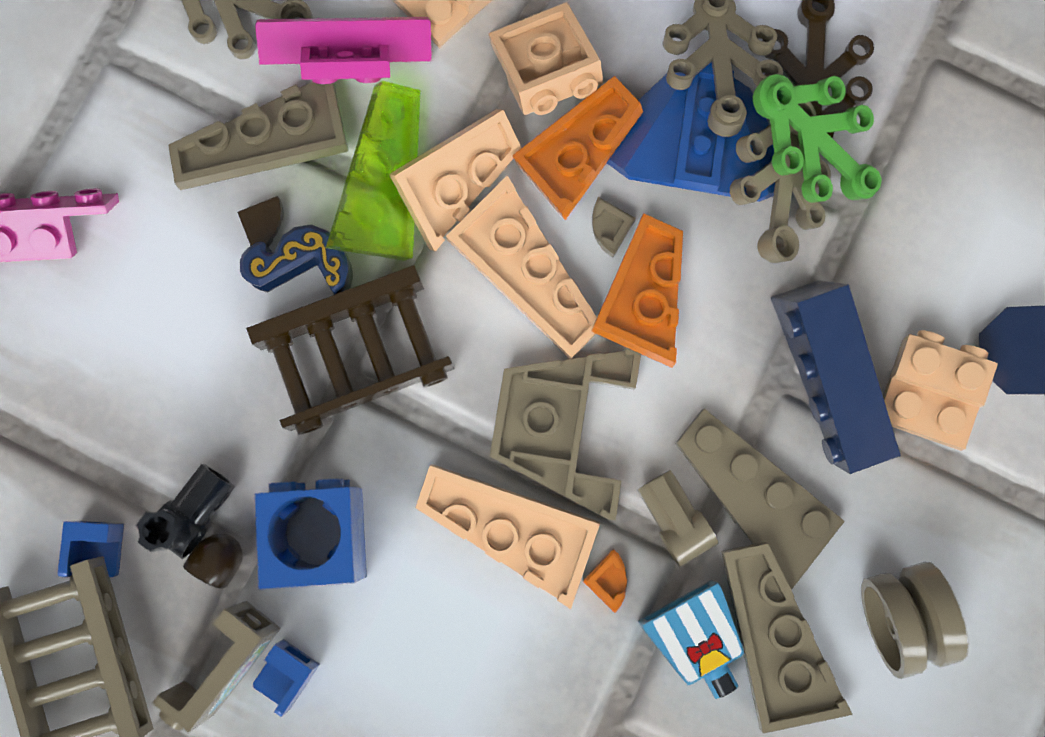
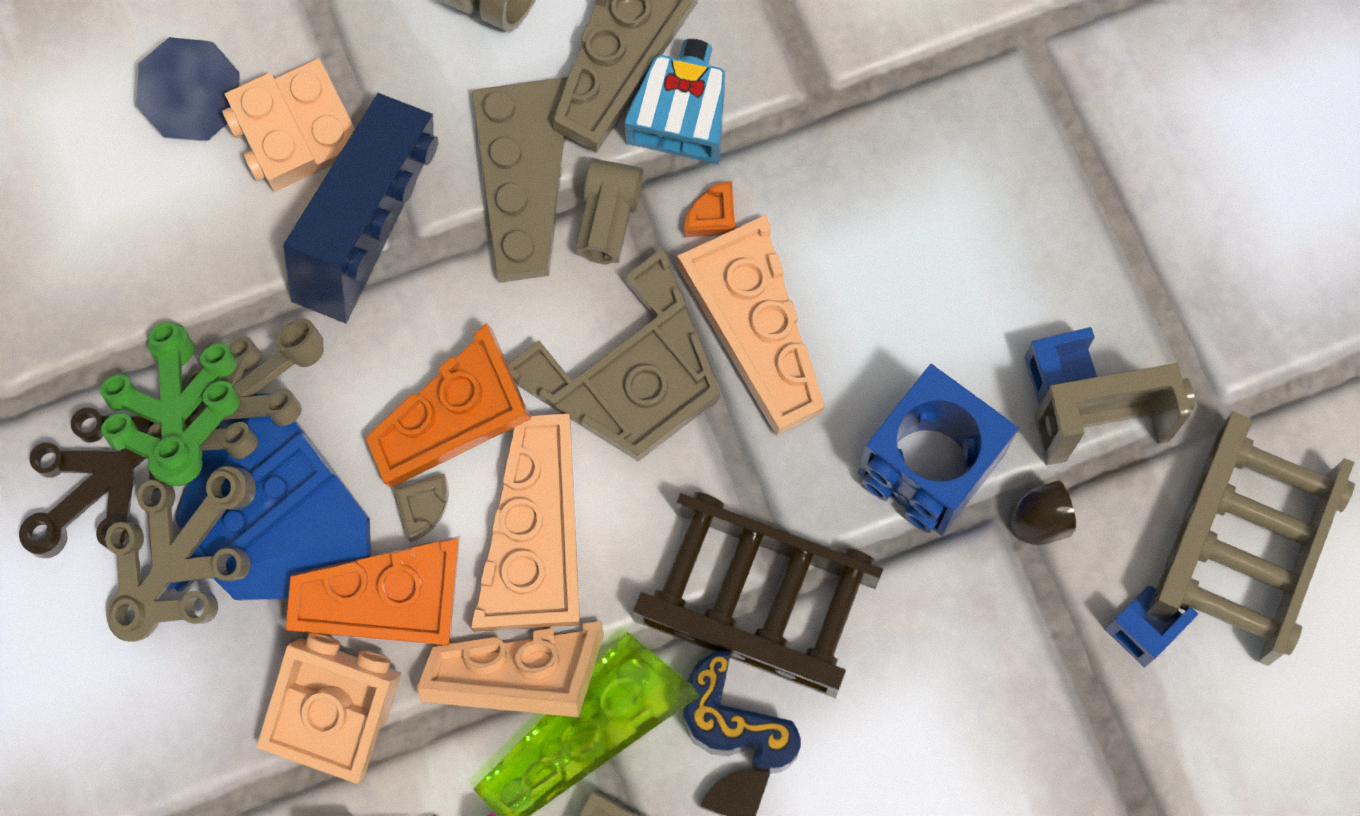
camera: 135 degrees left, 10 degrees down
(183, 521) = (1046, 574): black piece -> none

